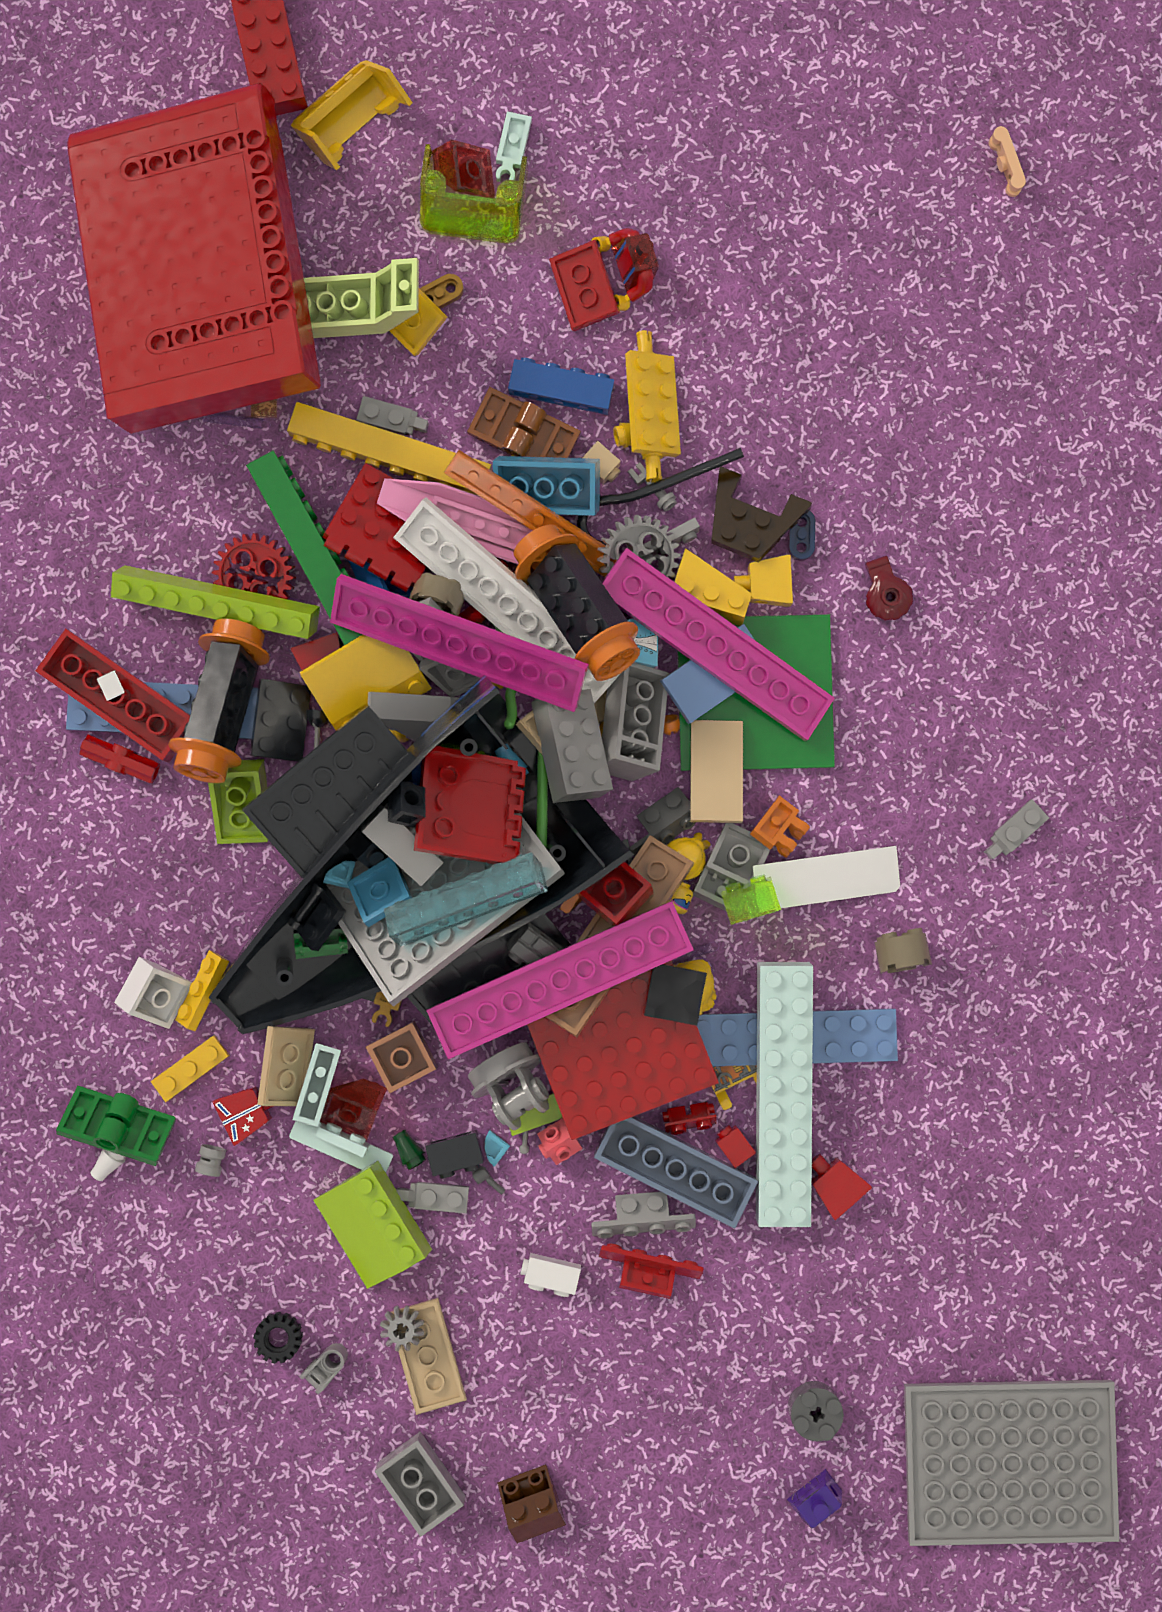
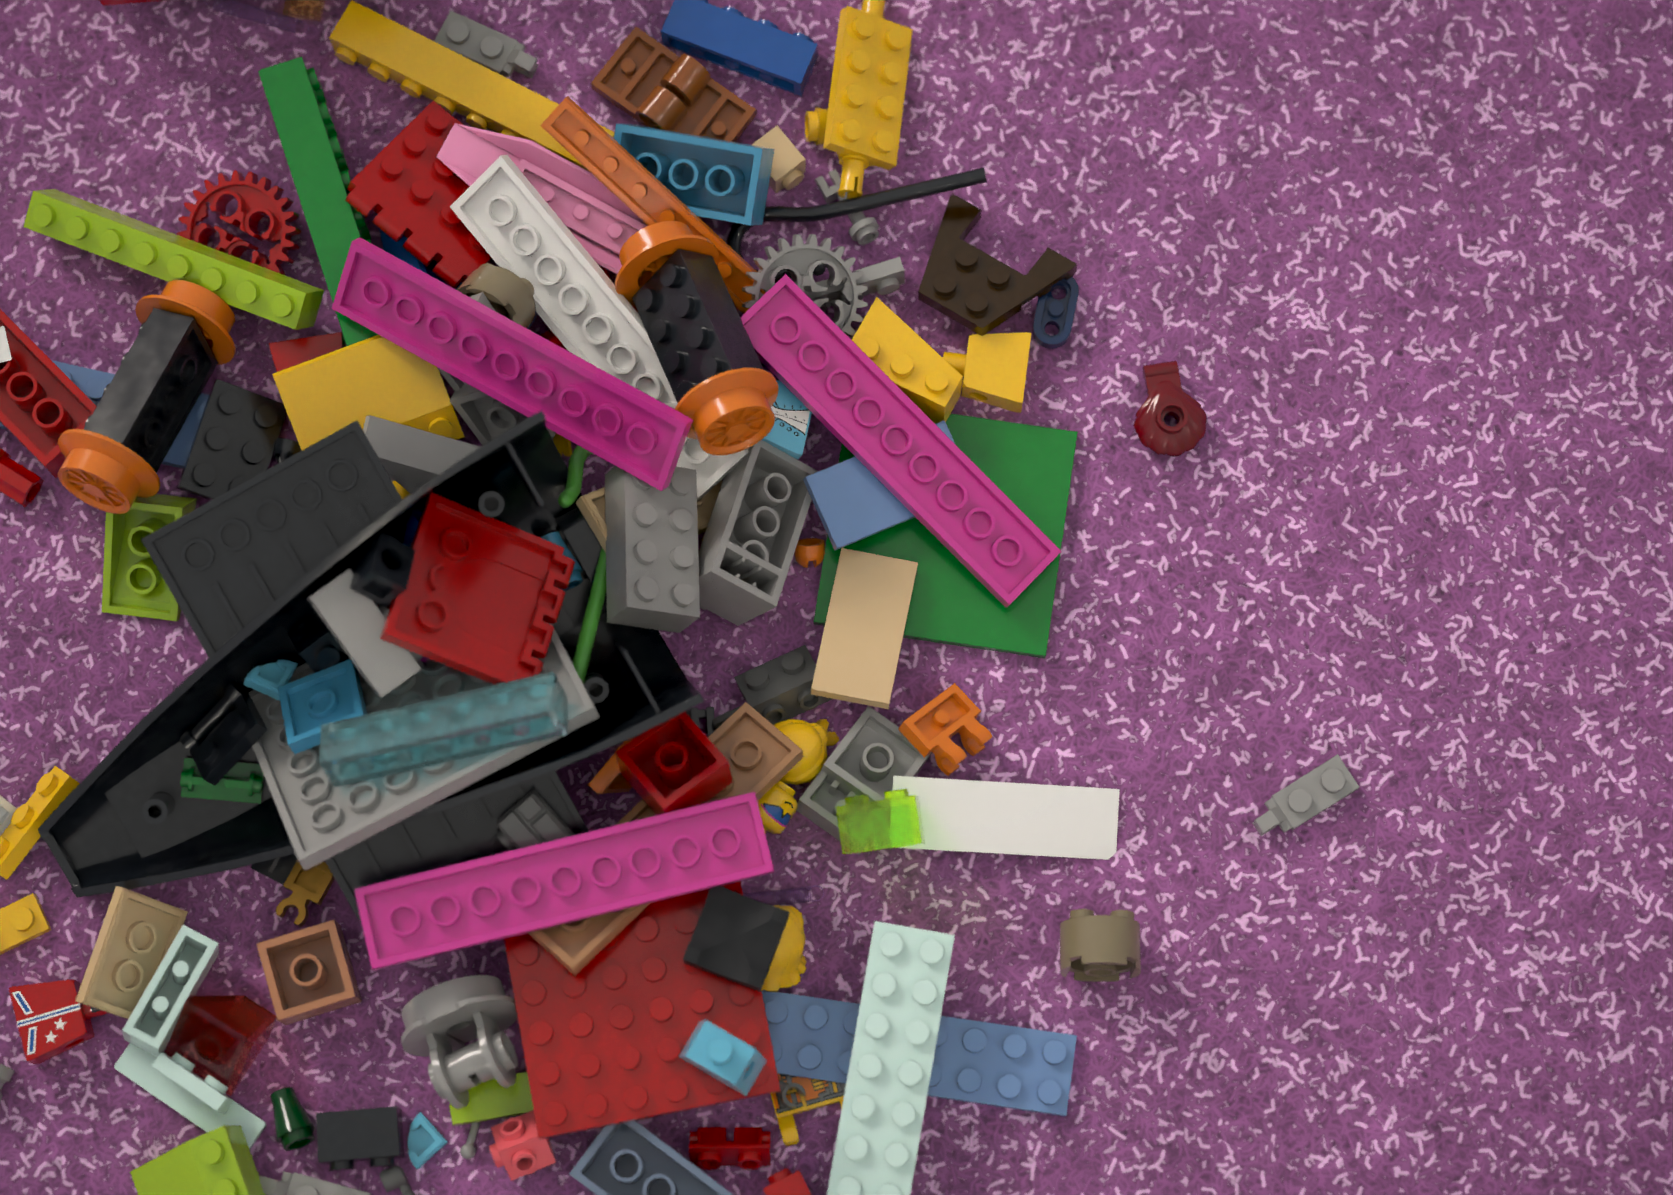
camera: 15 degrees right, 10 degrees down
(679, 1071) = (723, 1057): none -> medium azure torso

